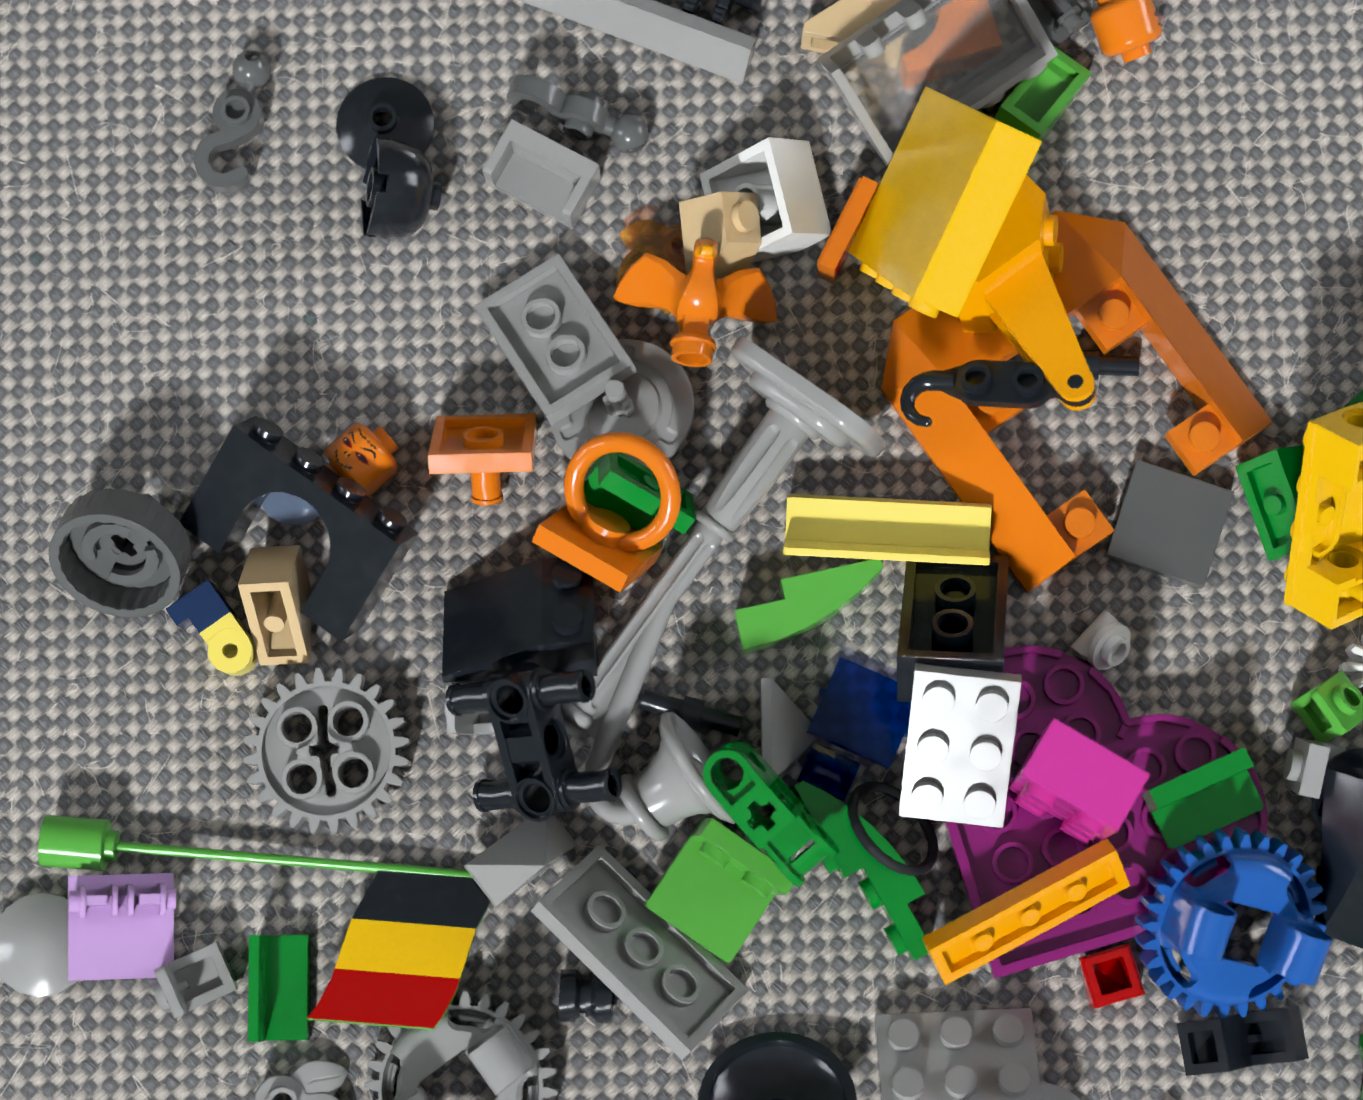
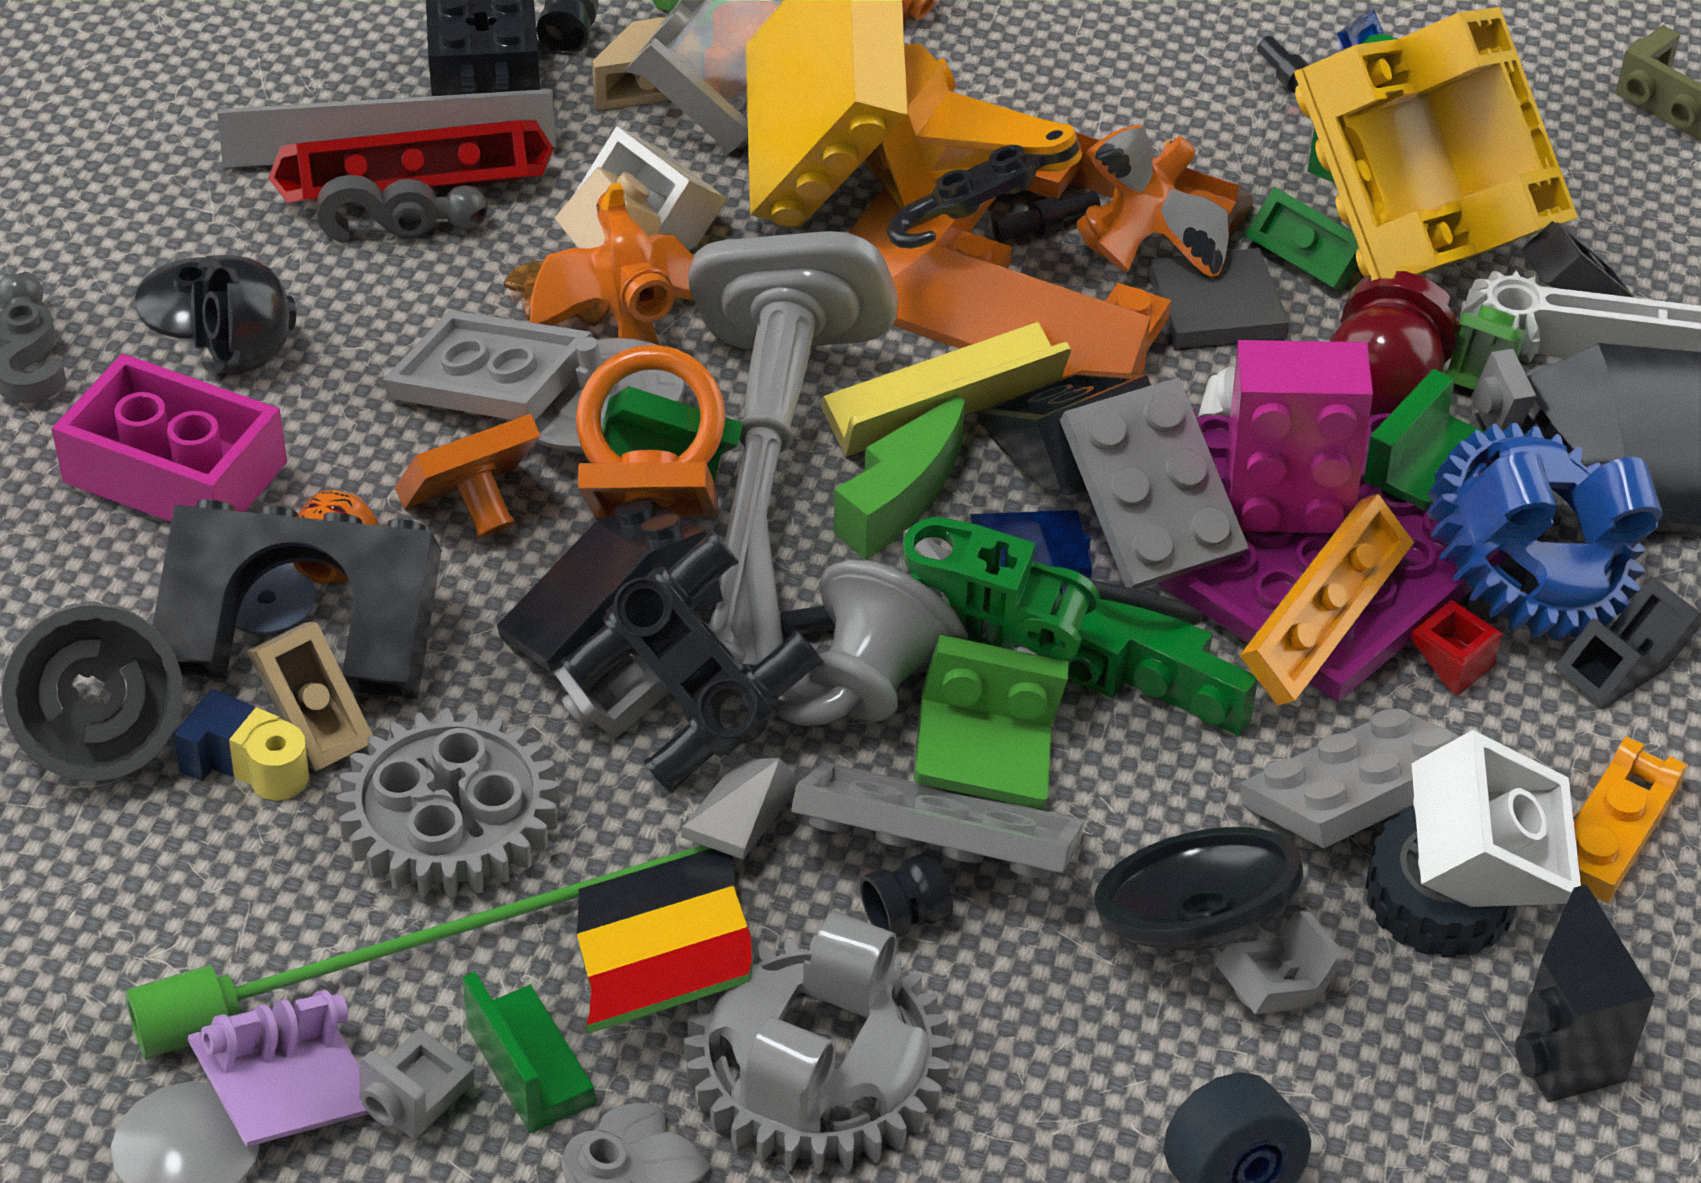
camera: 35 degrees left, 35 degrees down
(283, 312) = (168, 440): none -> dark pink brick
(542, 174) = (392, 262): light grey panel -> none
(609, 66) = (434, 156): none -> red brick
(837, 247) = (737, 189): orange tile -> none
(1155, 424) = (1150, 203): none -> animal
(1244, 681) = (1405, 331): none -> dark red tile

